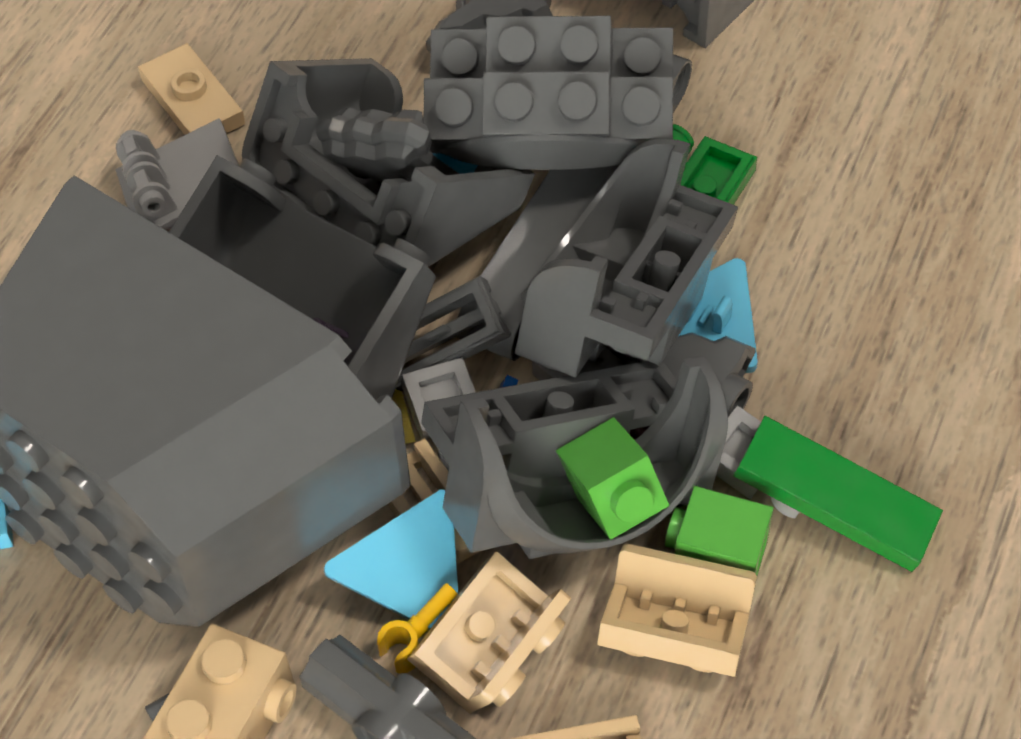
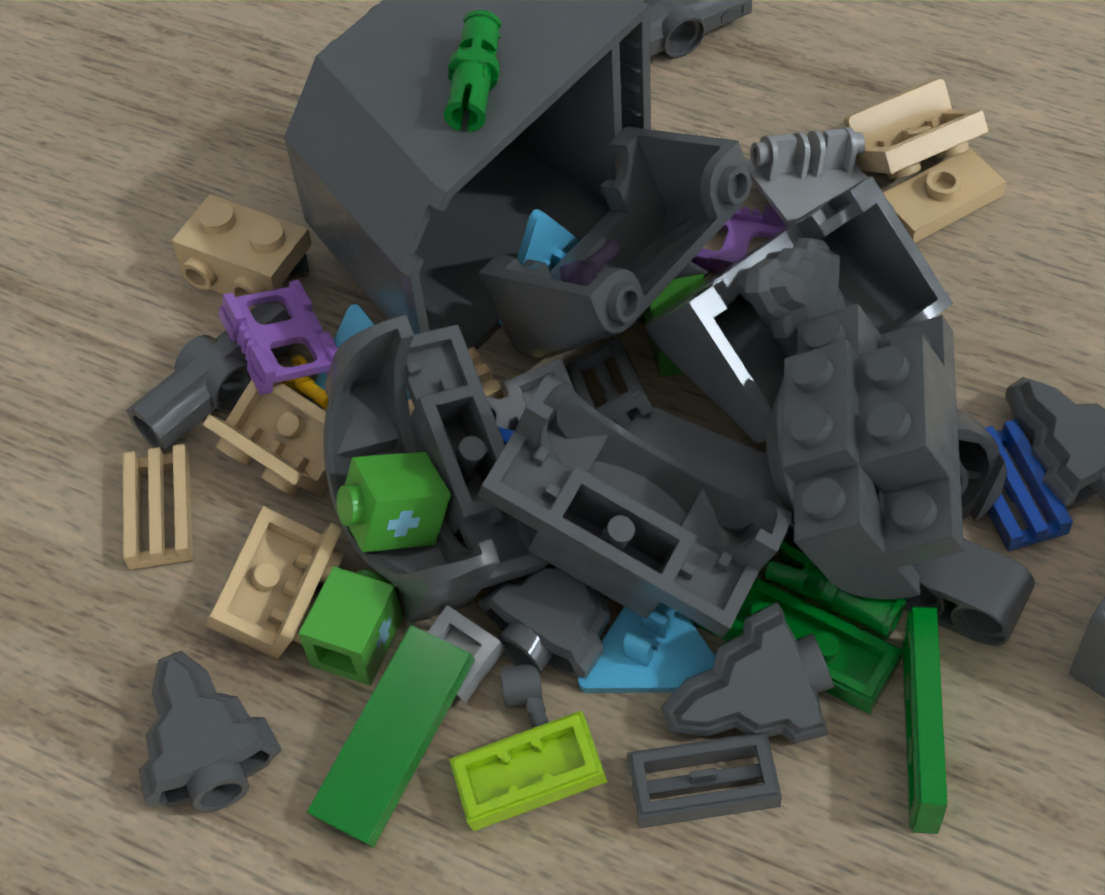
camera: 95 degrees right, 0 degrees up
(118, 97) = (913, 128): none -> tan bracket
(175, 306) = (473, 70): none -> green pin
(382, 644) = (258, 339): none -> medium lavender piece
(763, 224) = (756, 684): none -> dark grey rock
(770, 399) = (523, 687): none -> dark grey hand
(775, 118) = (924, 721): none -> green tile
(847, 311) = (706, 804): none -> dark grey tile
(854, 390) = (527, 770): none -> lime plate
(858, 666) = (200, 741): none -> dark grey rock

